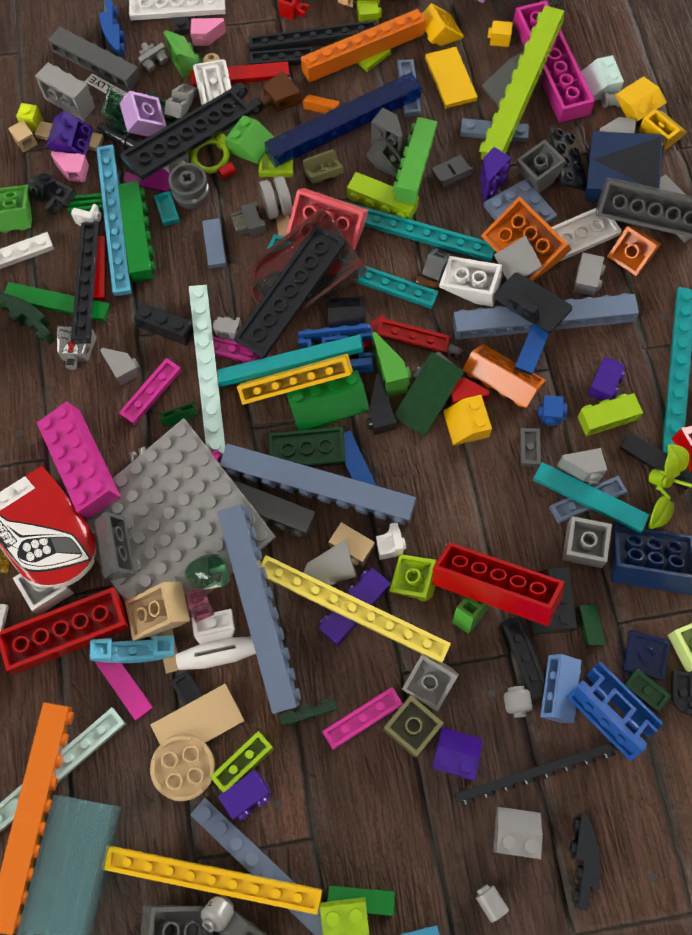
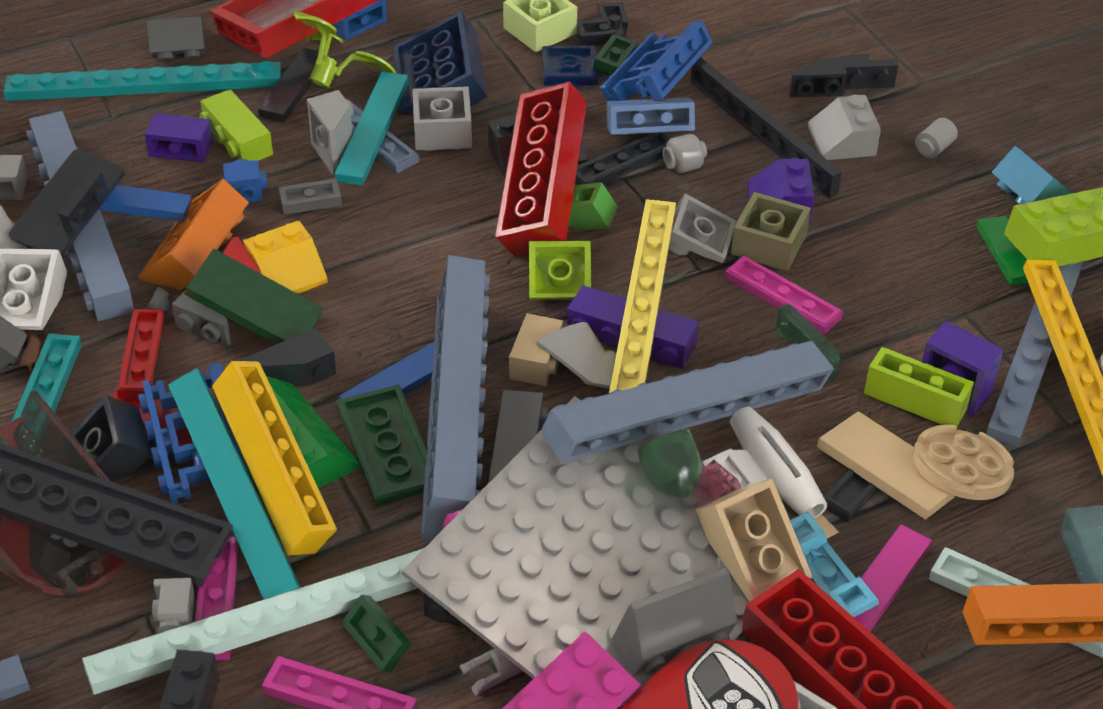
camera: 110 degrees left, 25 degrees down
(391, 367) = (218, 339): bright green slope -> none
(391, 543) = (514, 301): white brick -> none

